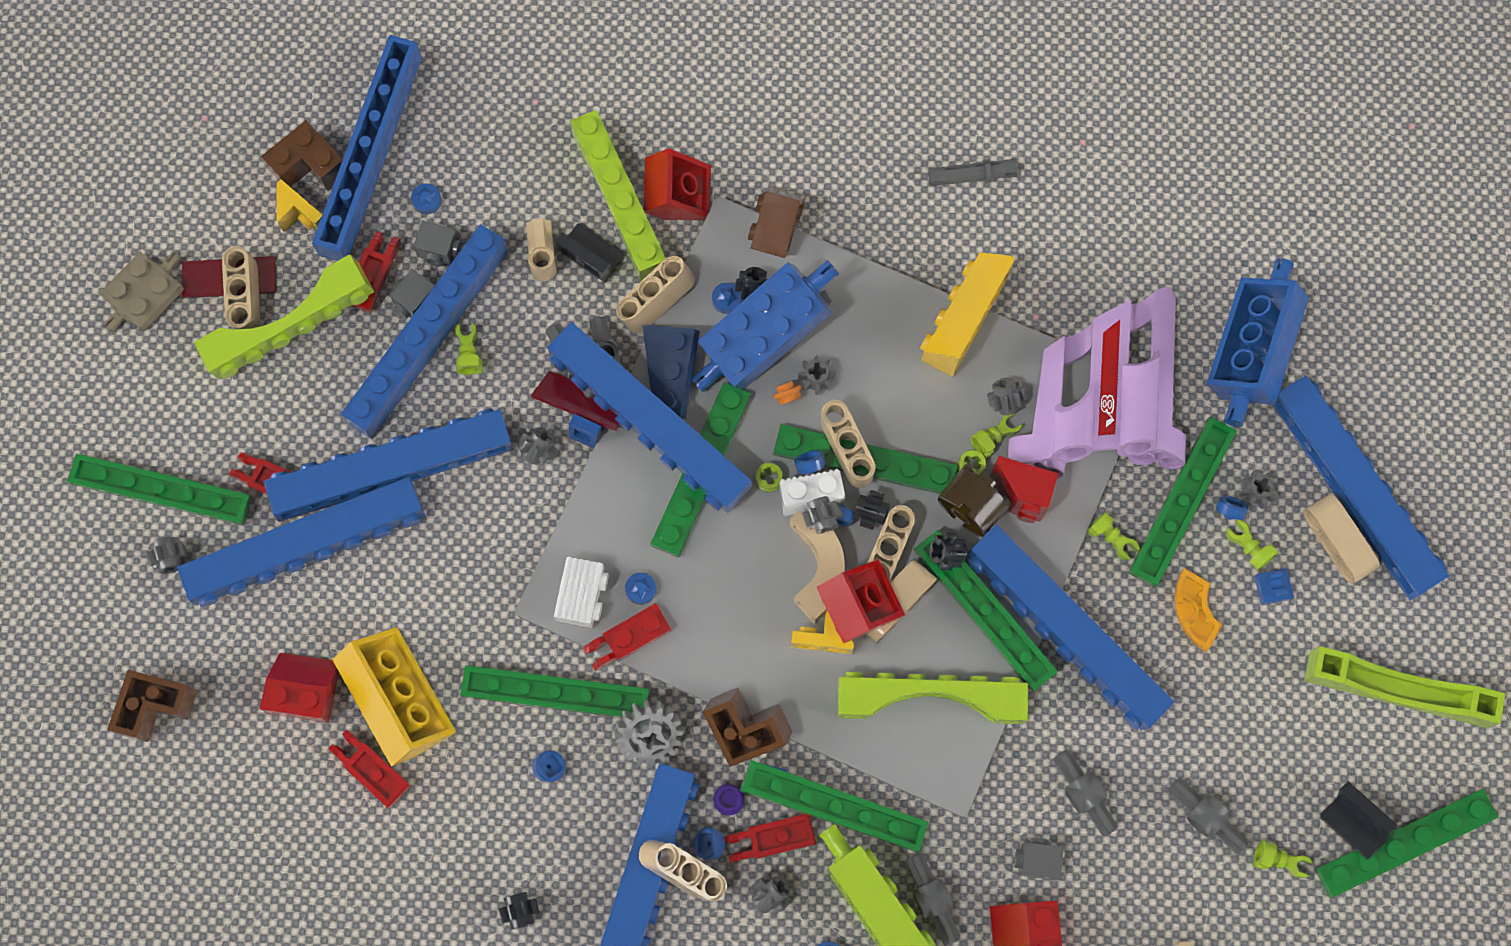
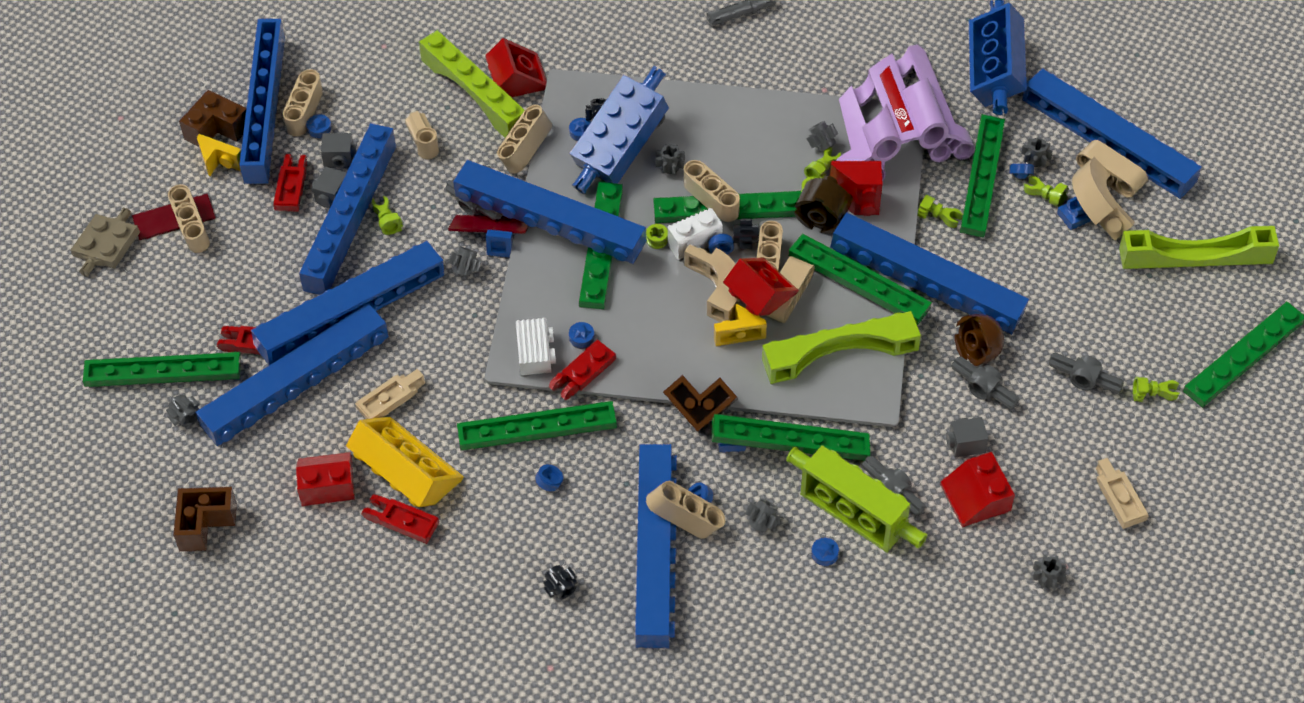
camera: 15 degrees left, 20 degrees down
(337, 288) = (195, 256): lime arch -> none
(401, 603) = (390, 395): none -> tan hinge
(415, 149) = (302, 102): none -> tan beam
(589, 252) = (461, 130): black panel -> none
(647, 731) = (625, 416): light grey gear -> none
(671, 364) = (552, 171): dark blue wing -> none
(728, 799) = (704, 462): dark purple plate -> none
(774, 838) = (749, 479): red hinge -> none
(777, 220) = (603, 66): reddish brown brick -> none
(787, 392) = (651, 176): orange plate -> none
(810, 462) = (686, 211): blue tile -> none
(822, 515) = (709, 237): dark grey gear -> none
(948, 551) = (816, 239): black gear -> none
(966, 312) = (770, 89): yellow slope -> none
(1099, 736) = (979, 339): none -> reddish brown cylinder
(1193, 610) = (1020, 245): light orange tile -> none
(1303, 581) = (1096, 200): none -> tan arch
(1358, 821) = (1202, 342): black panel -> none

